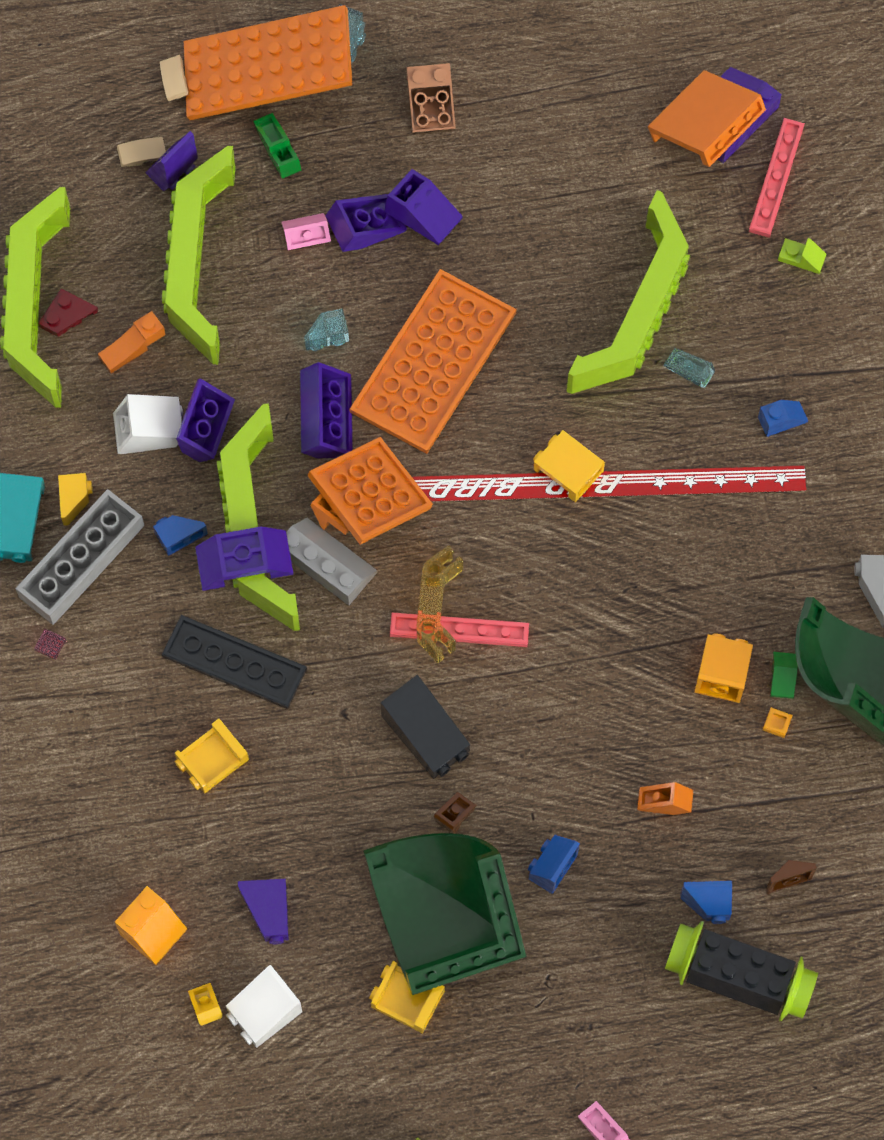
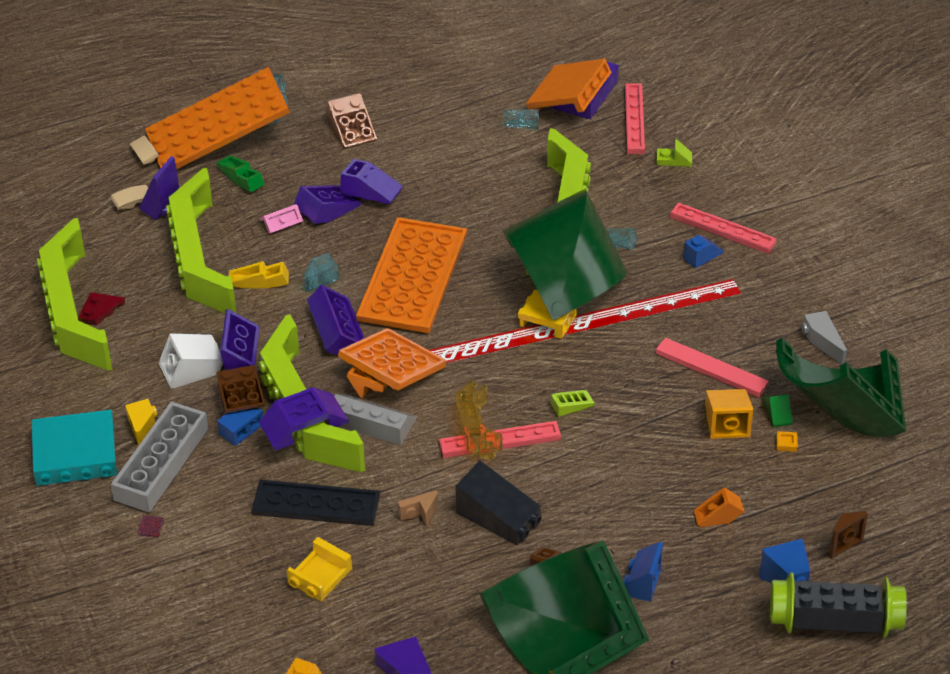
camera: 15 degrees left, 25 degrees down
(133, 342) = (162, 312): orange slope -> none
(189, 489) = (240, 389): none -> reddish brown slope
(257, 316) = (260, 276): none -> yellow slope
(348, 701) = (422, 505): none -> medium nougat slope
(557, 607) = (563, 406): none -> lime slope
(609, 403) = (567, 253): none -> dark green panel
(638, 146) = (522, 119): none -> clear light blue slope
(731, 593) = (712, 367): none -> coral tile
(820, 385) = (723, 228): none -> coral tile

